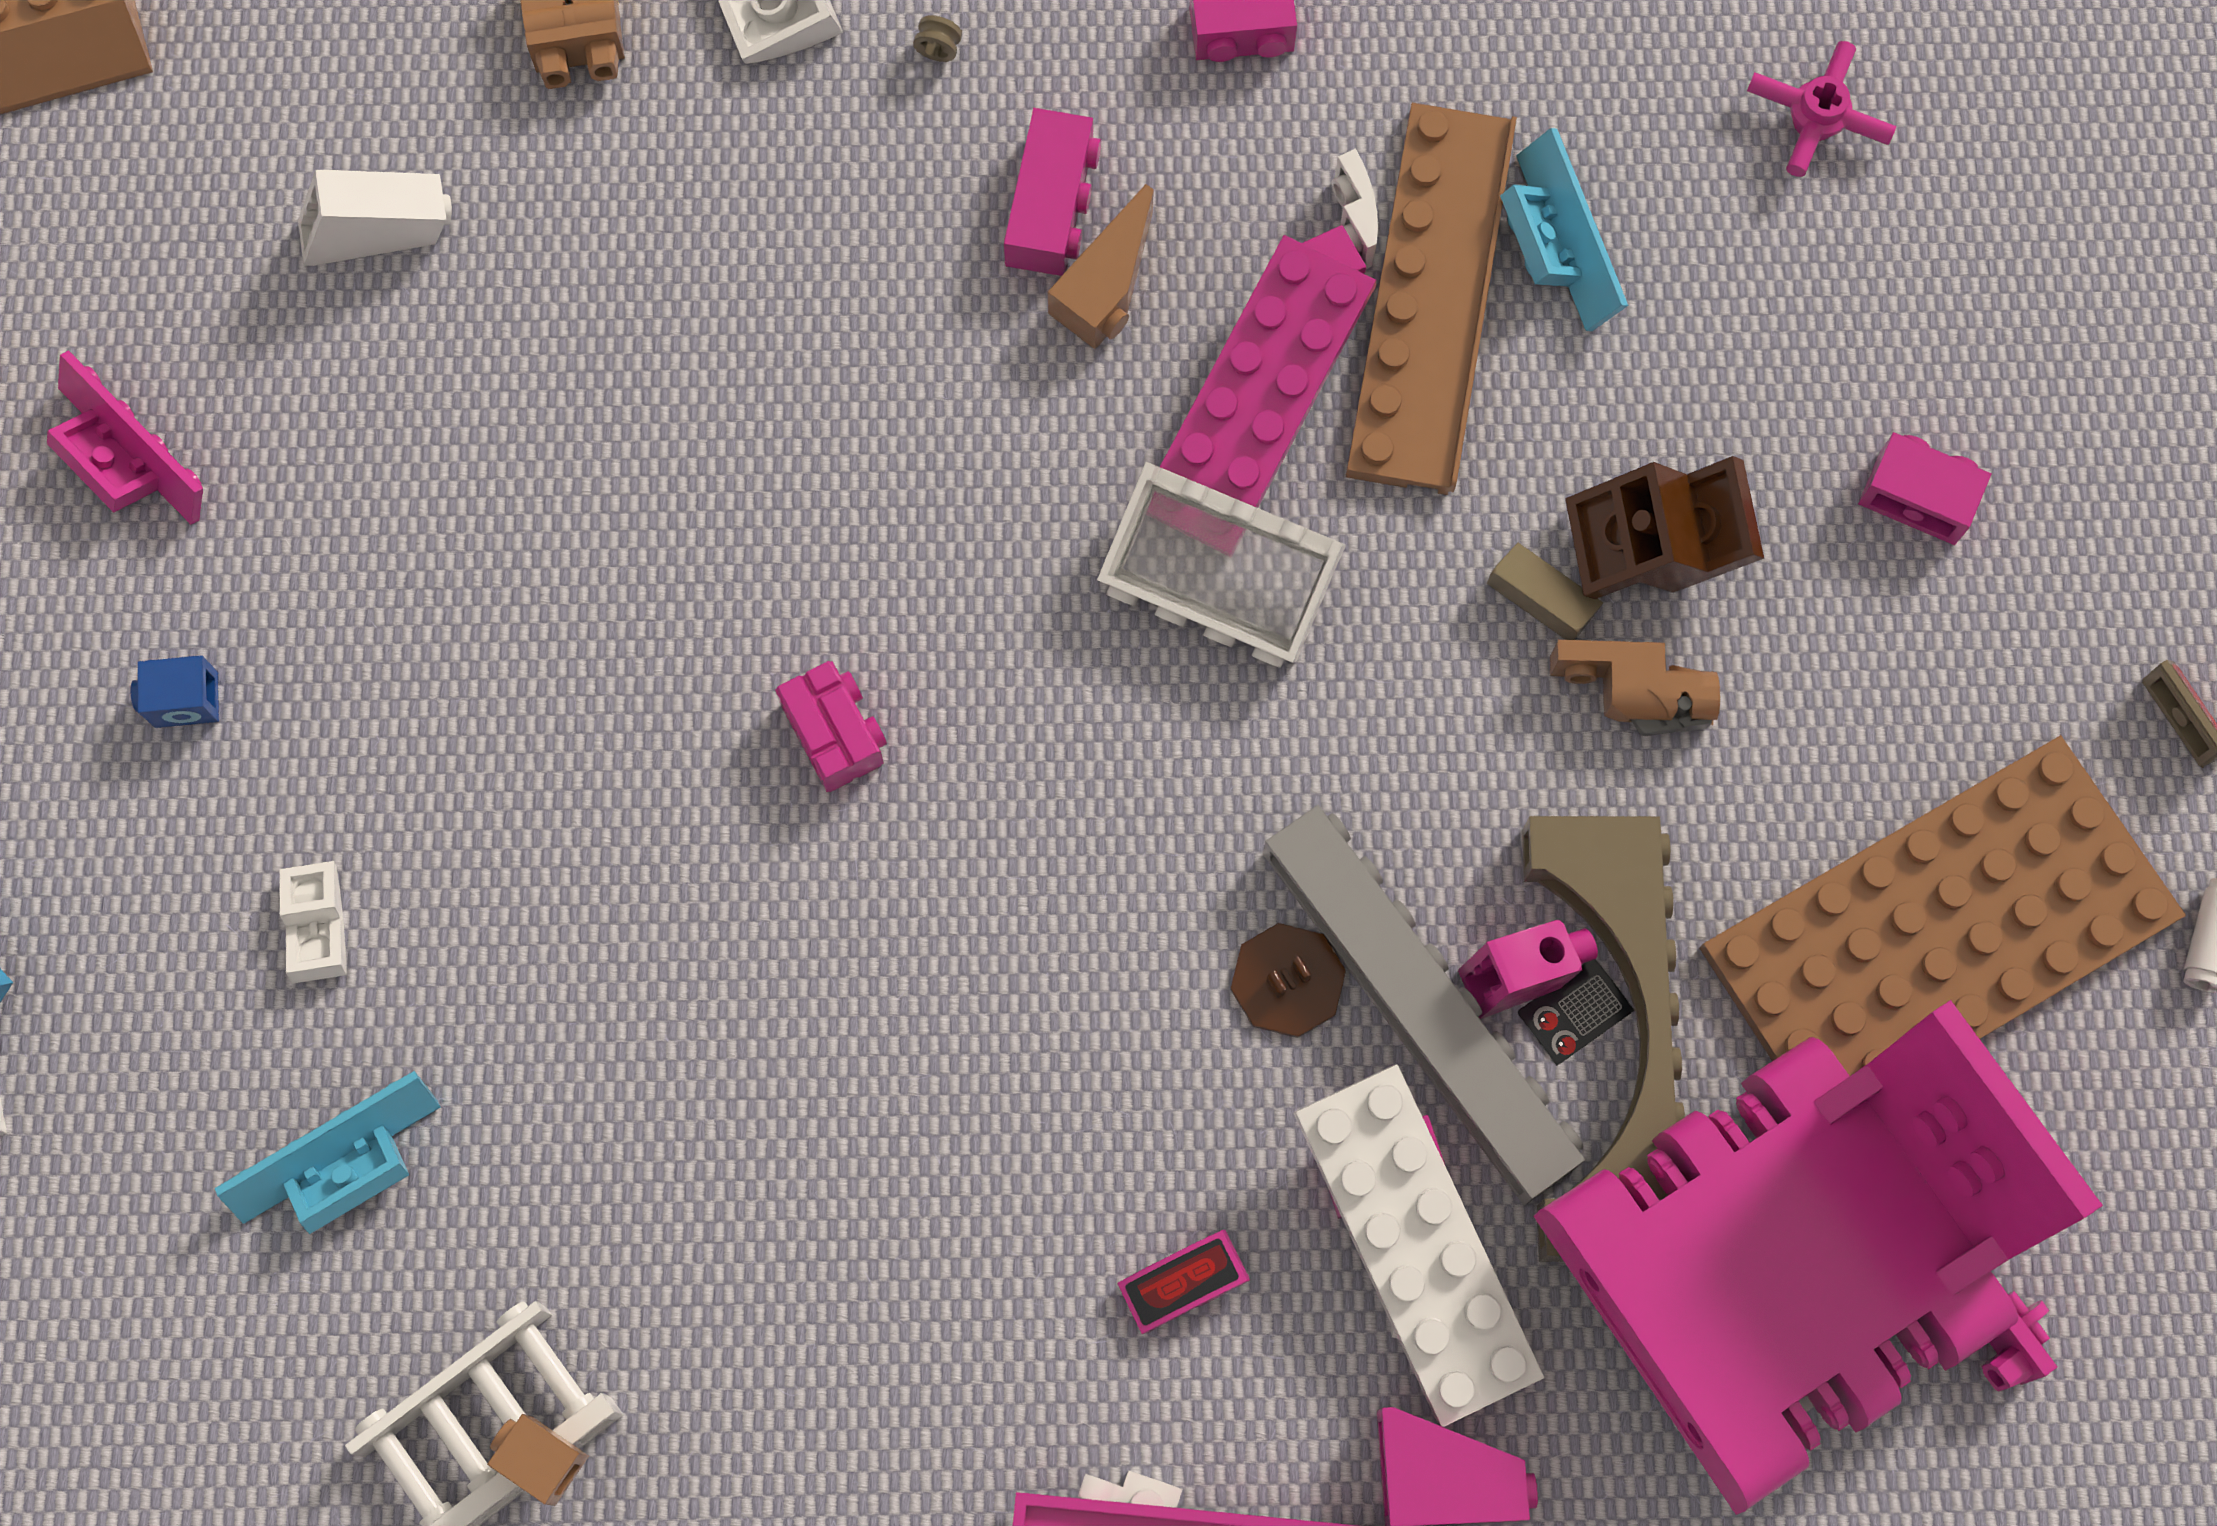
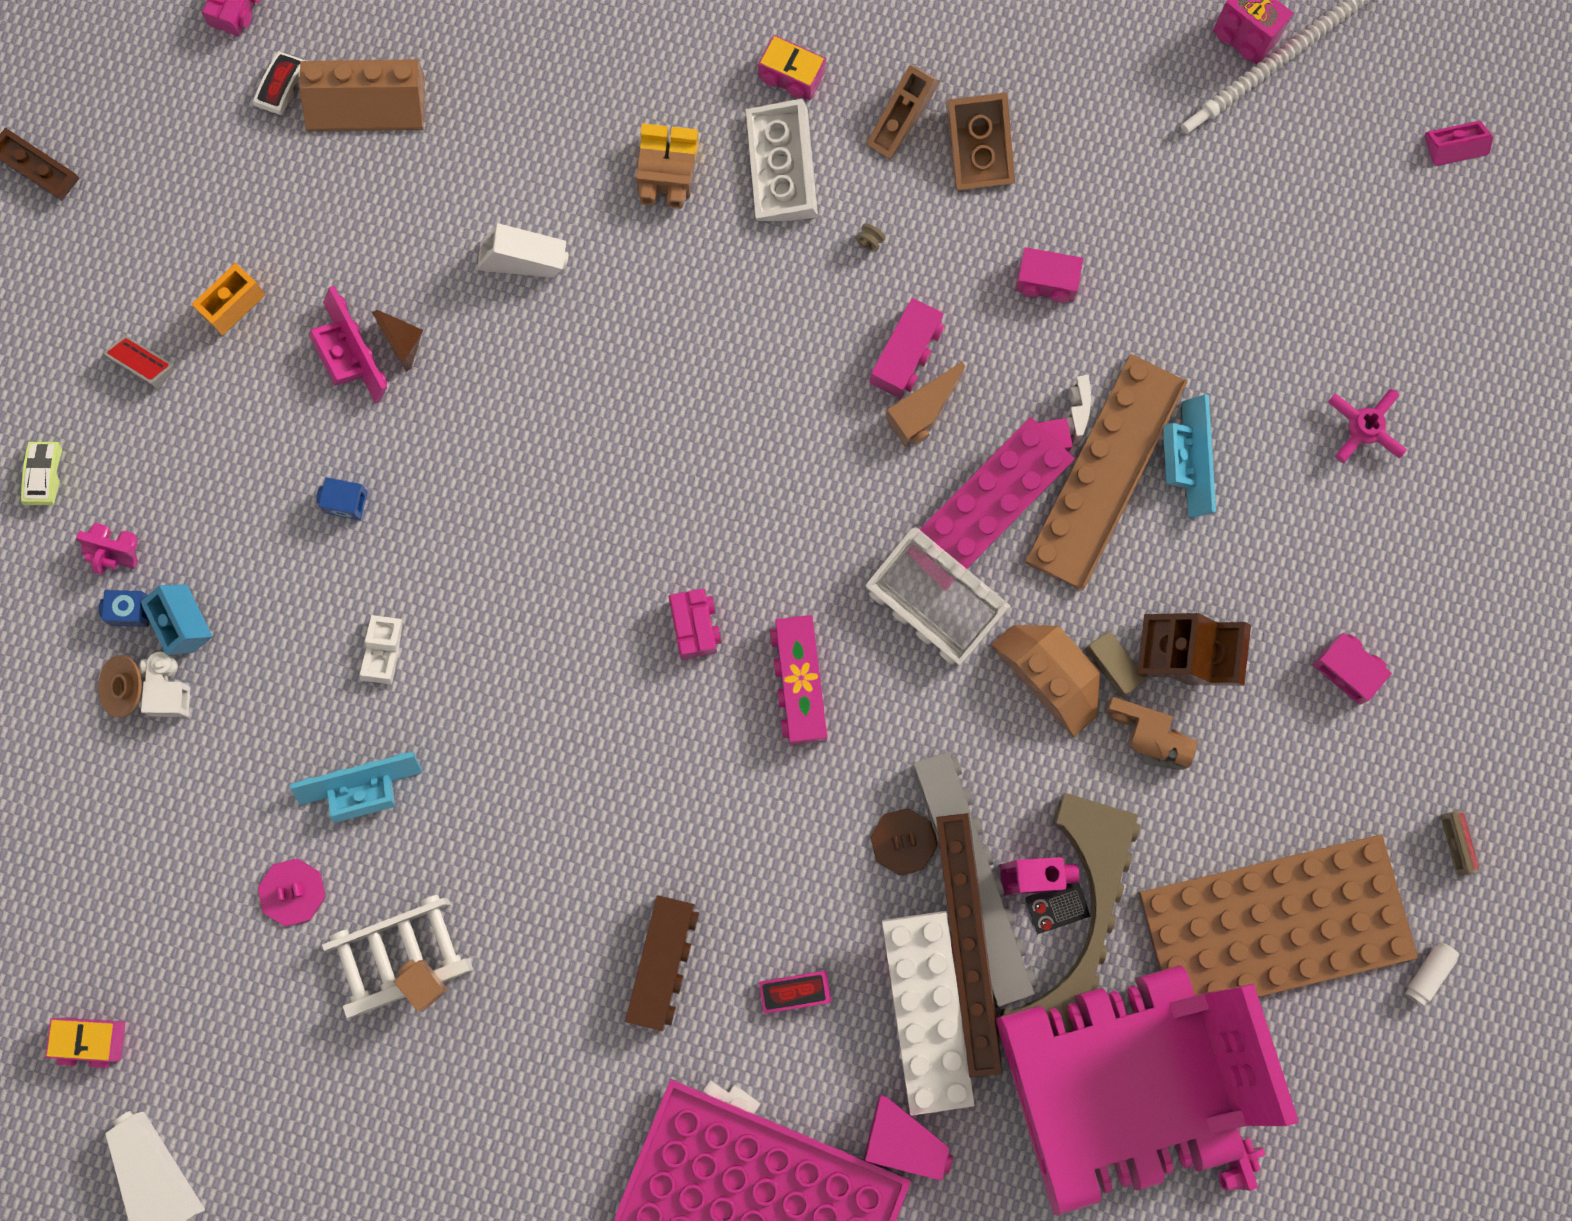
camera: 15 degrees right, 5 degrees up
(204, 403) = (401, 335): none -> reddish brown slope
(268, 1377) = (291, 892): none -> dark pink piece
(941, 1301) = (661, 962): none -> reddish brown brick
(1036, 765) = (800, 680): none -> dark pink brick
(1448, 634) = (1053, 672): none -> medium nougat wedge
(1453, 1110) = (969, 945): none -> reddish brown plate

